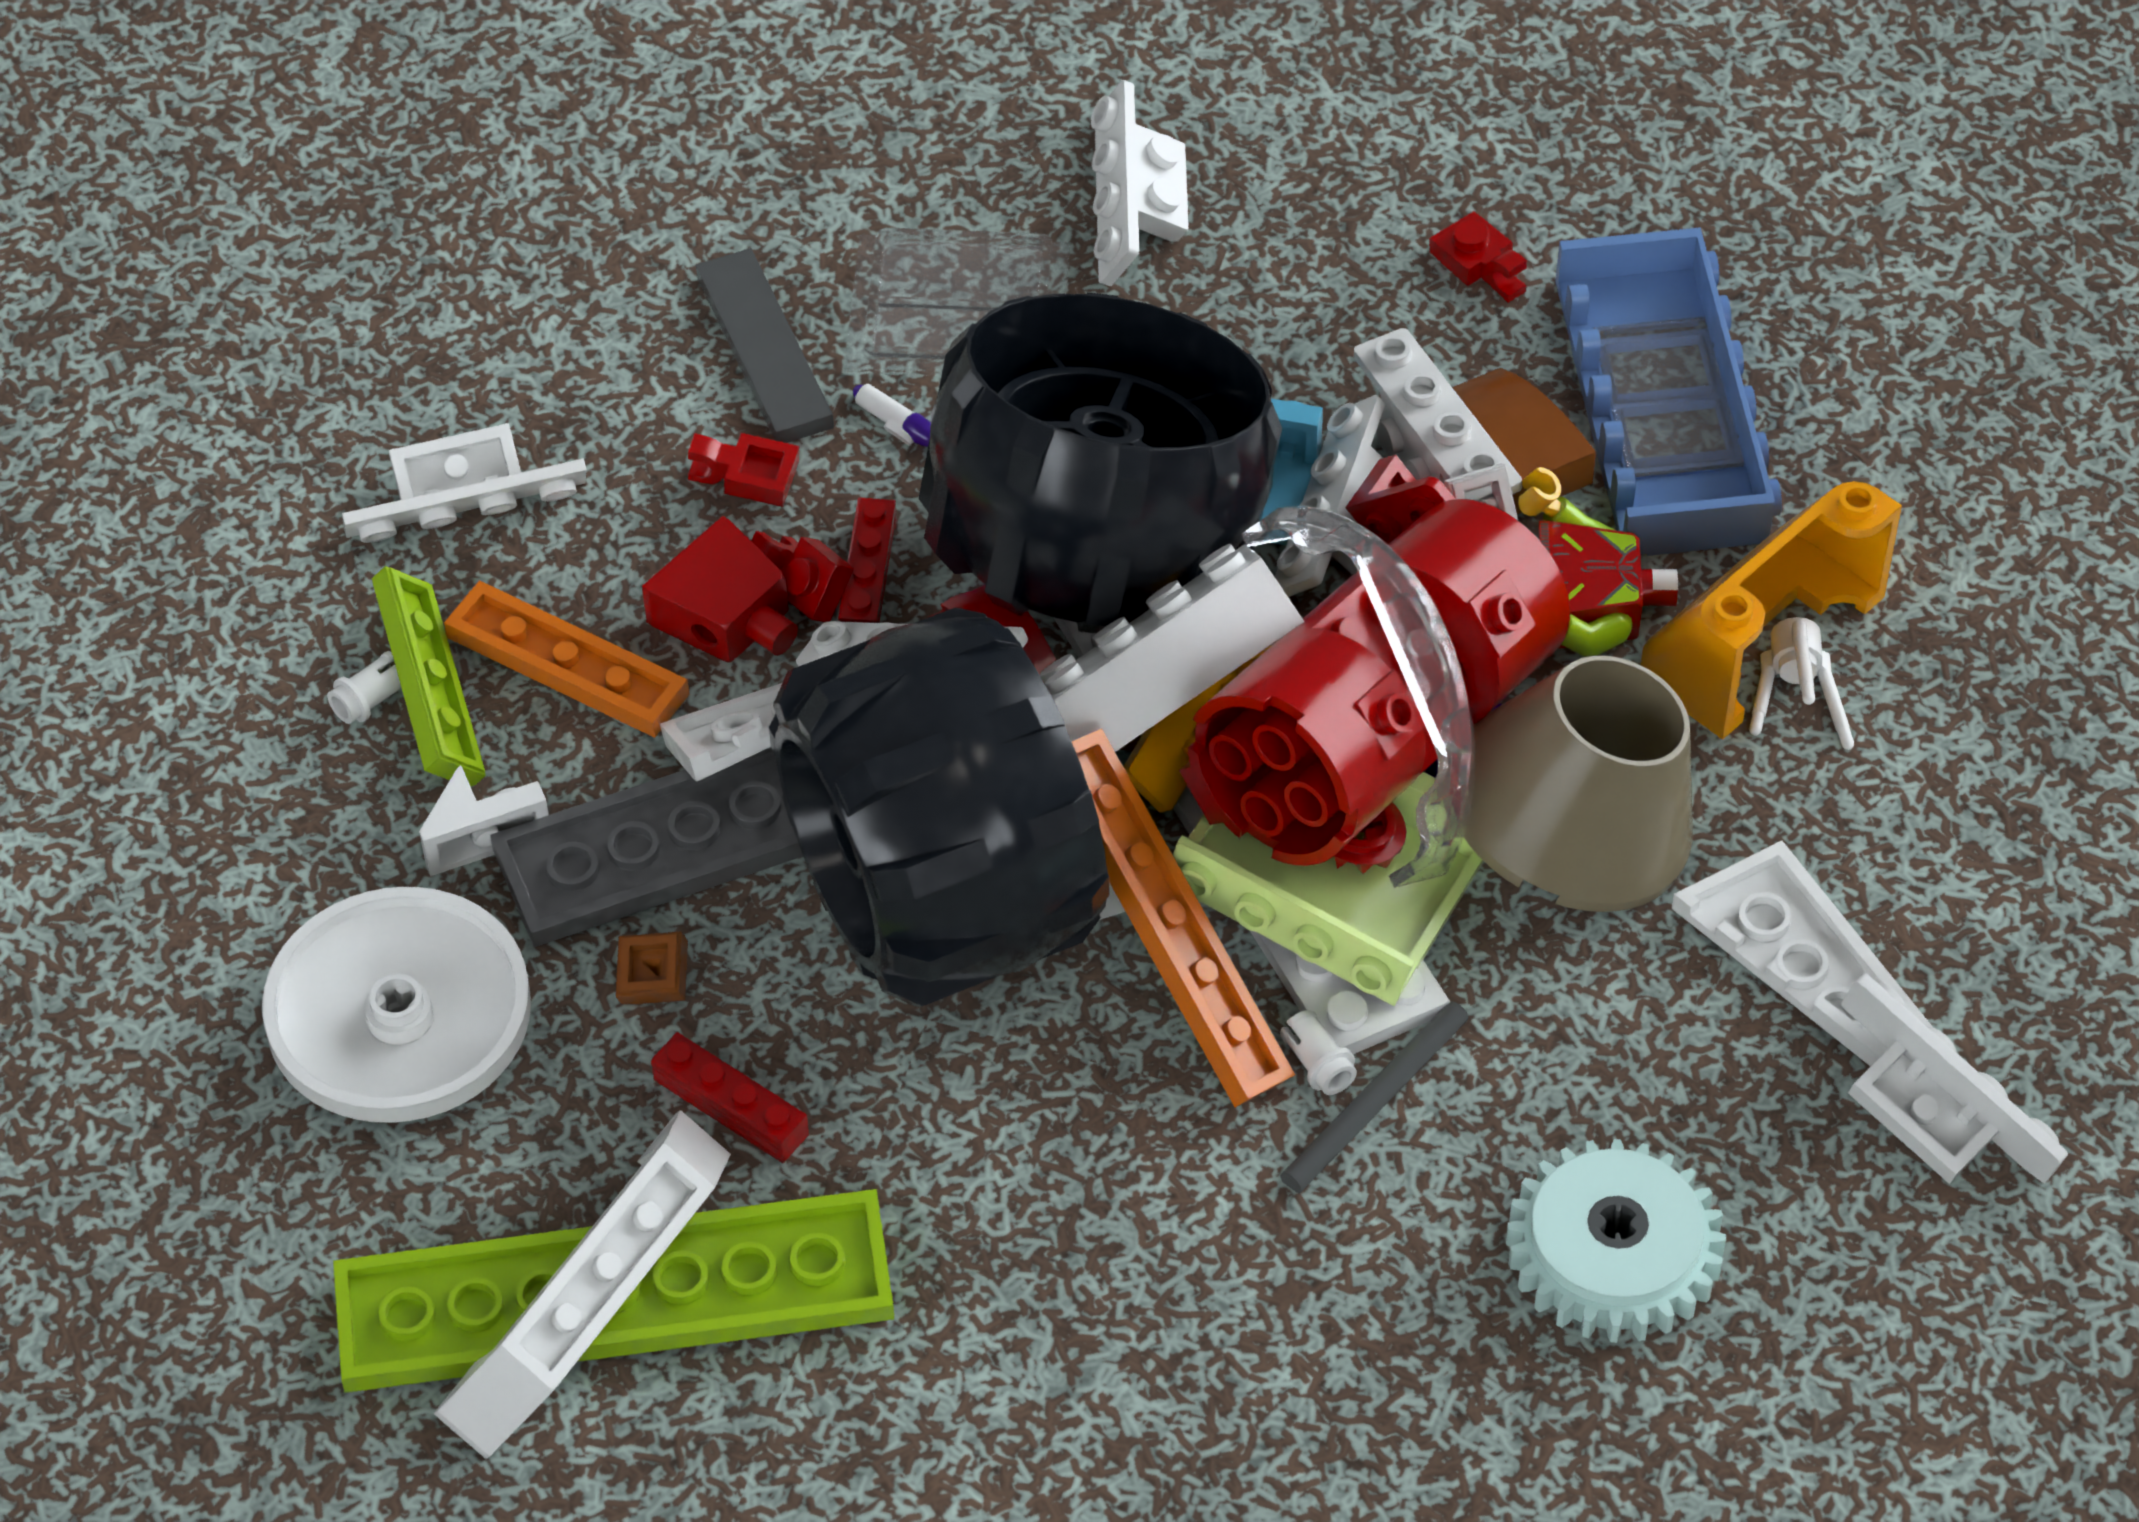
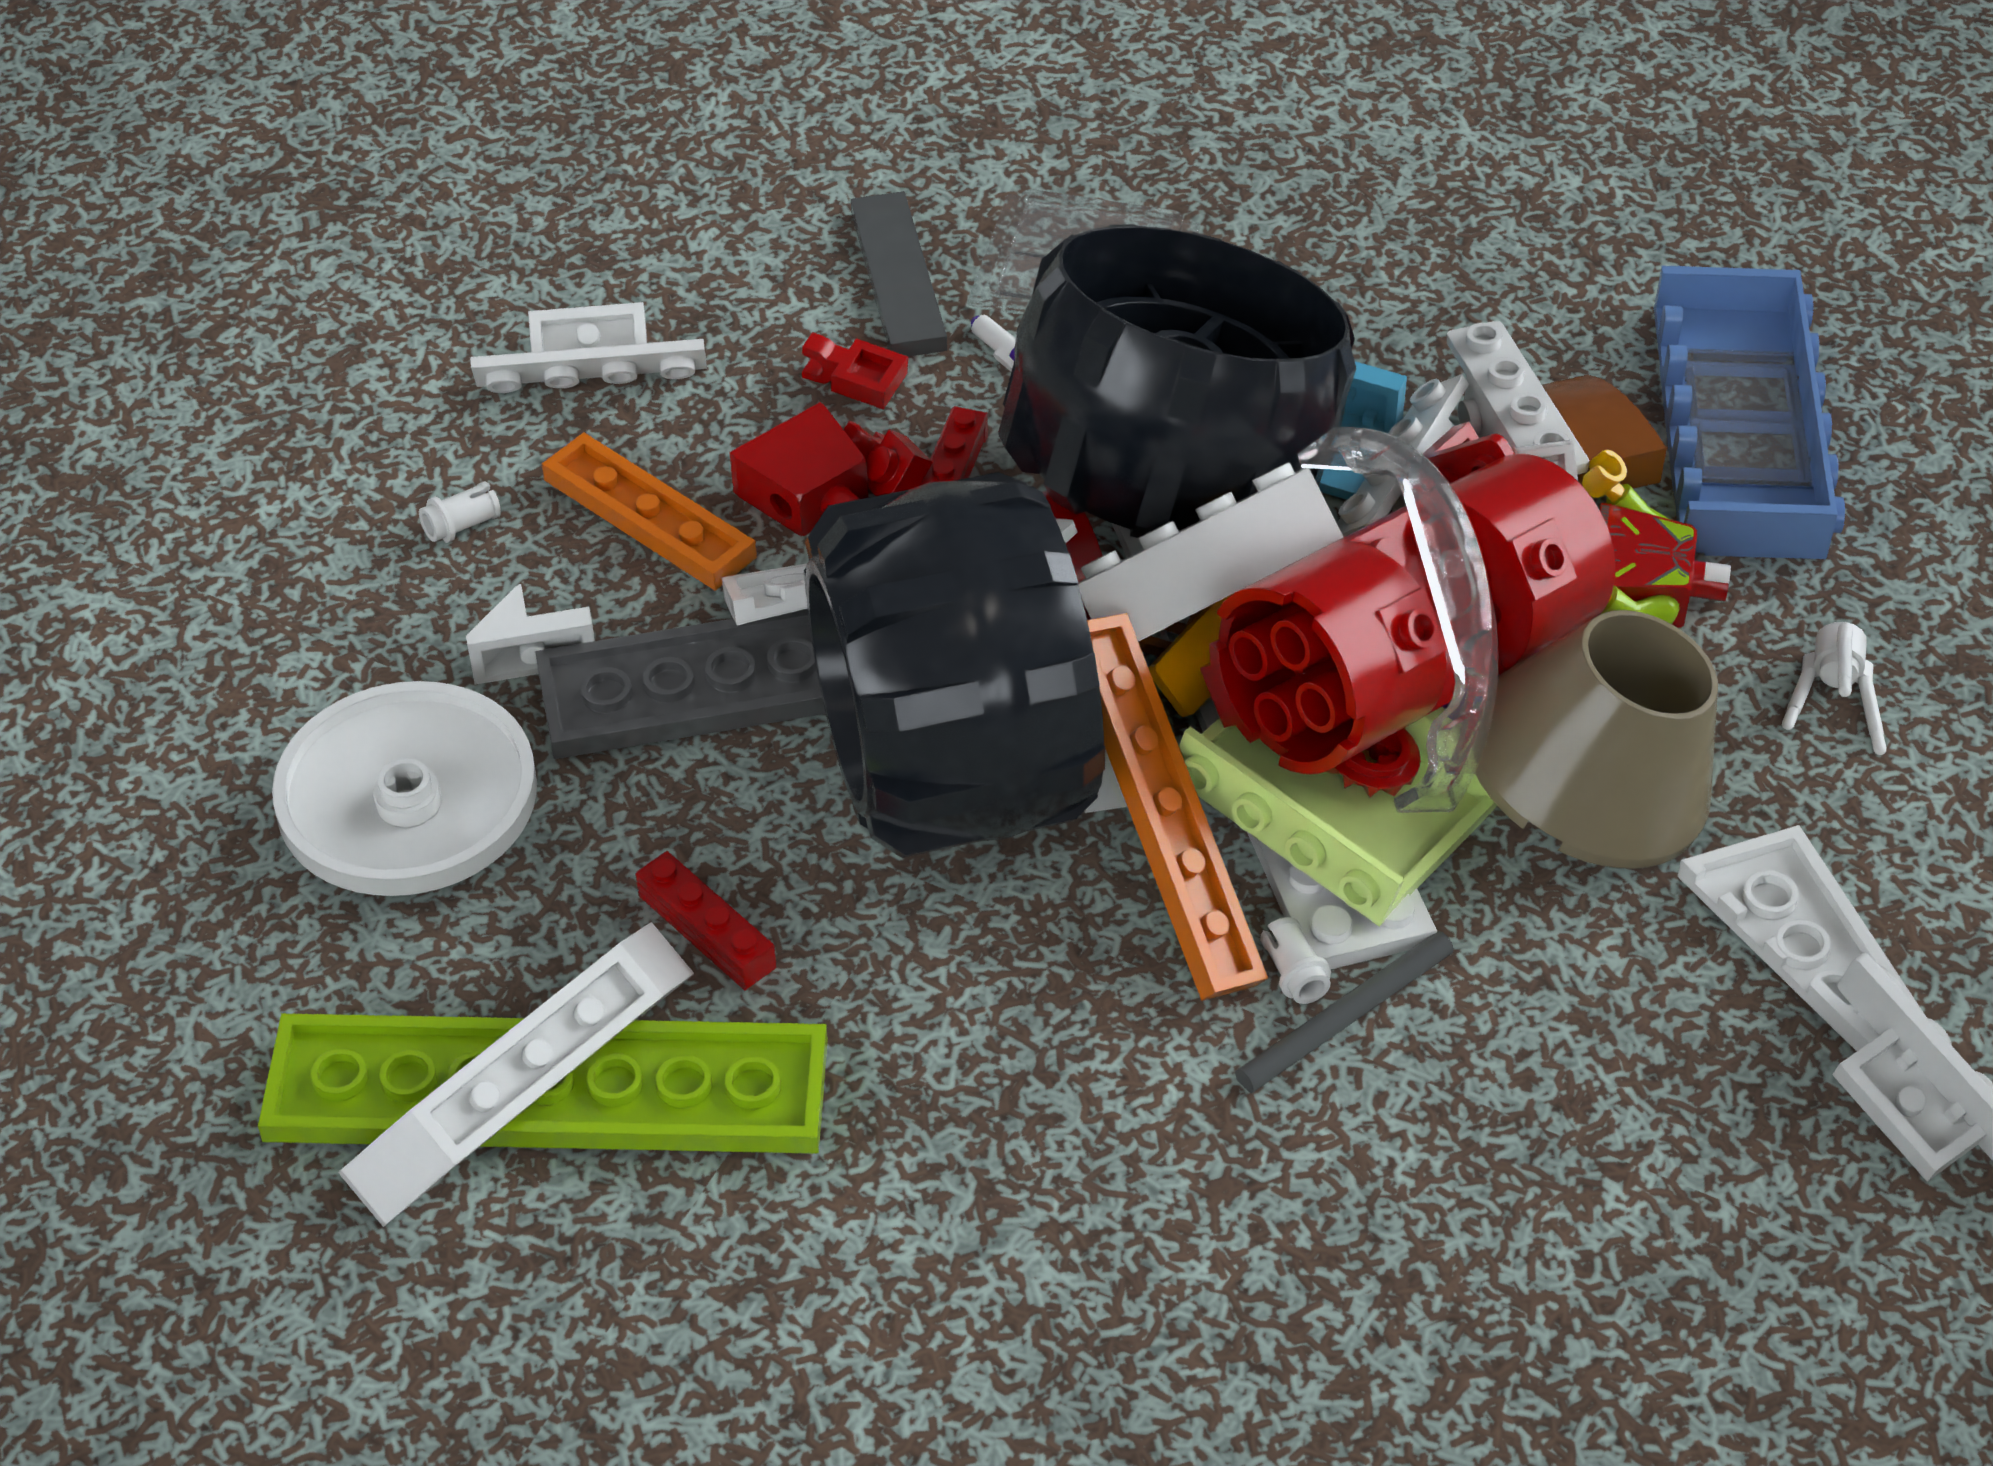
camera: 10 degrees right, 5 degrees down
(427, 675) = (515, 508): lime tile -> none
(651, 968) = (659, 792): dark orange tile -> none
(1136, 183) = (1273, 176): white bracket -> none
(1479, 251) = (1586, 274): red plate -> none
(1615, 1240) = (1567, 1184): light aqua gear -> none
(1821, 556) = (1874, 568): light orange windscreen -> none

